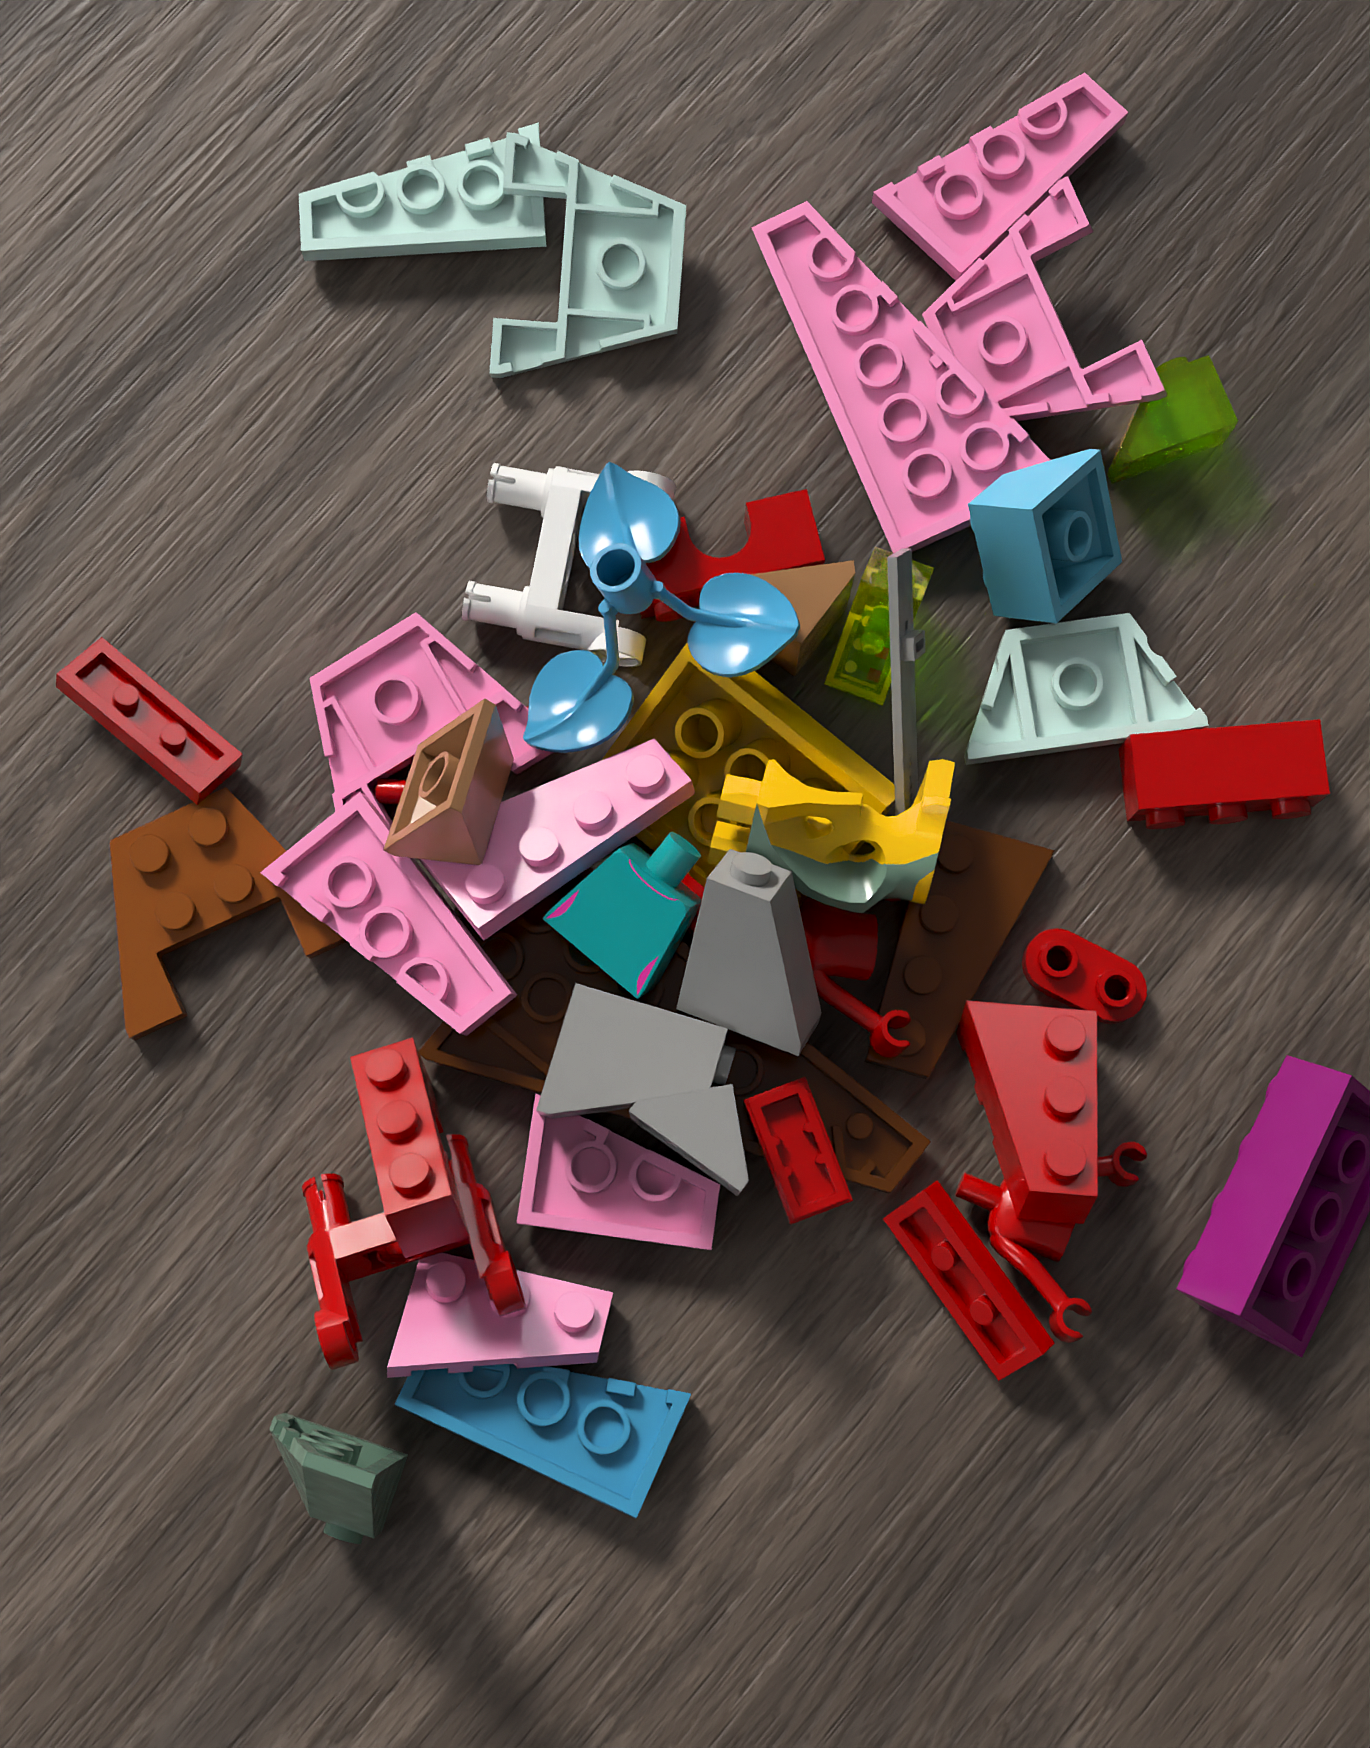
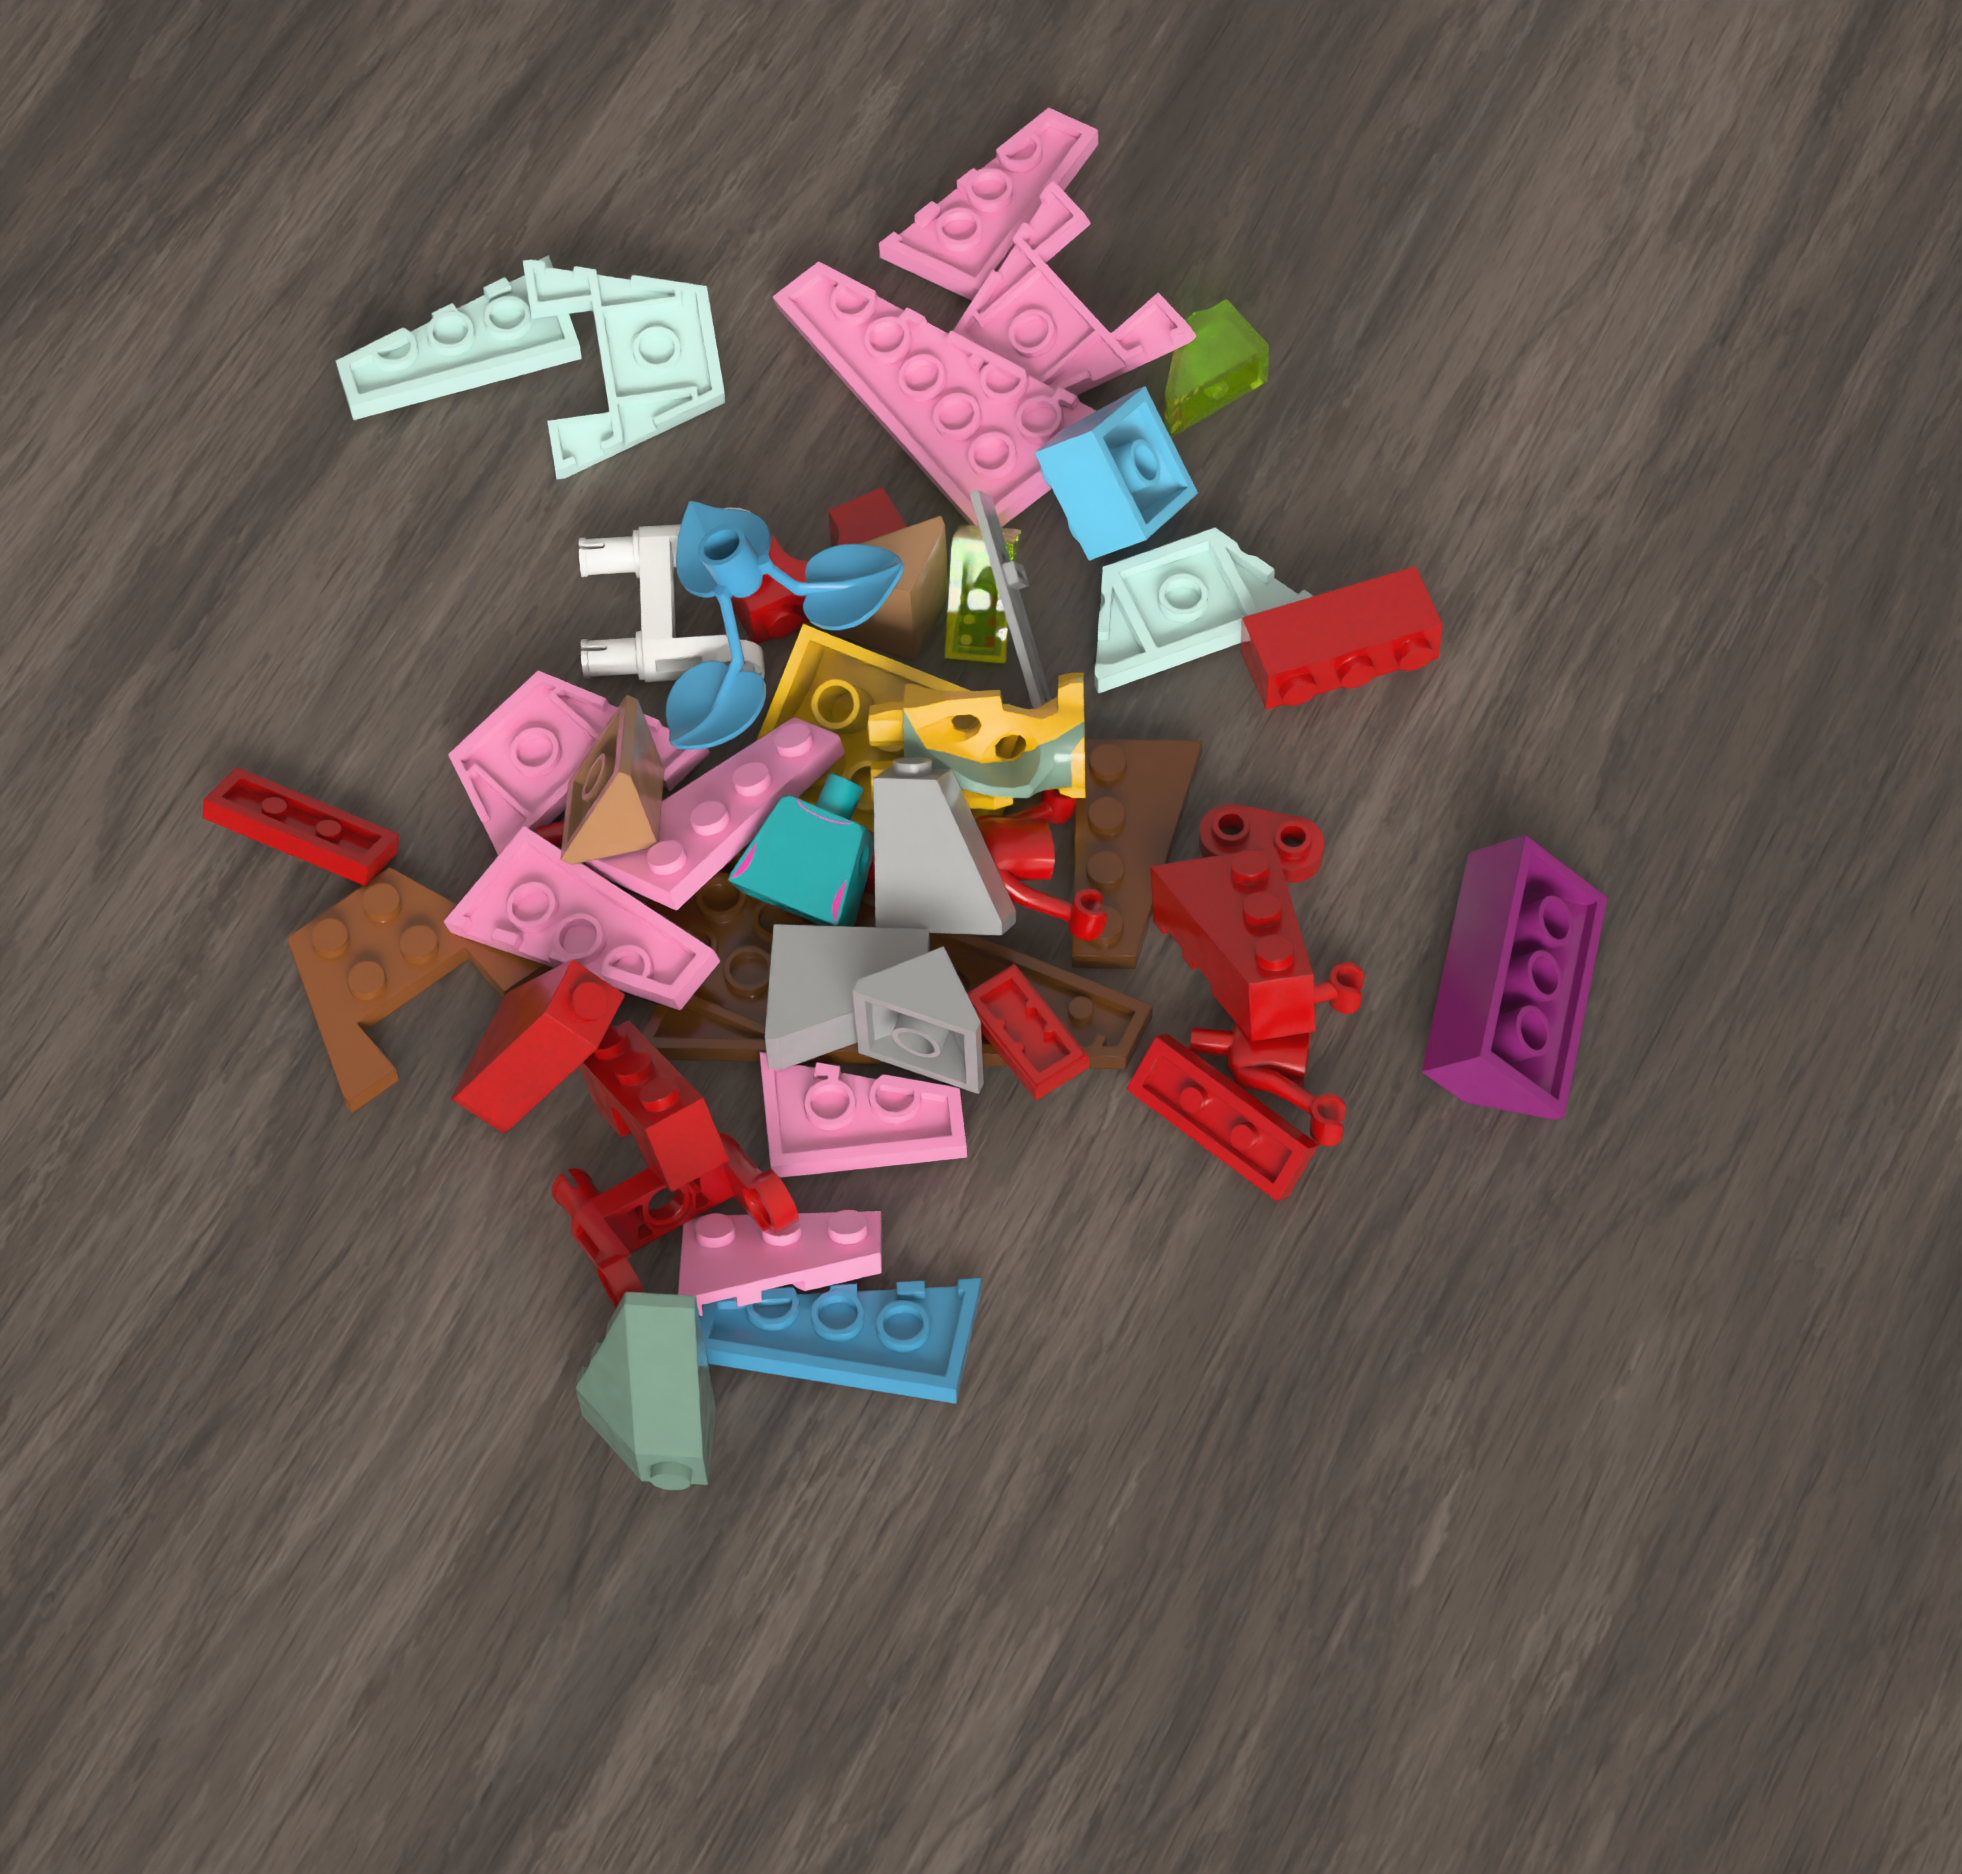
camera: 10 degrees left, 20 degrees down
(315, 1043) = (536, 1043): none -> red slope

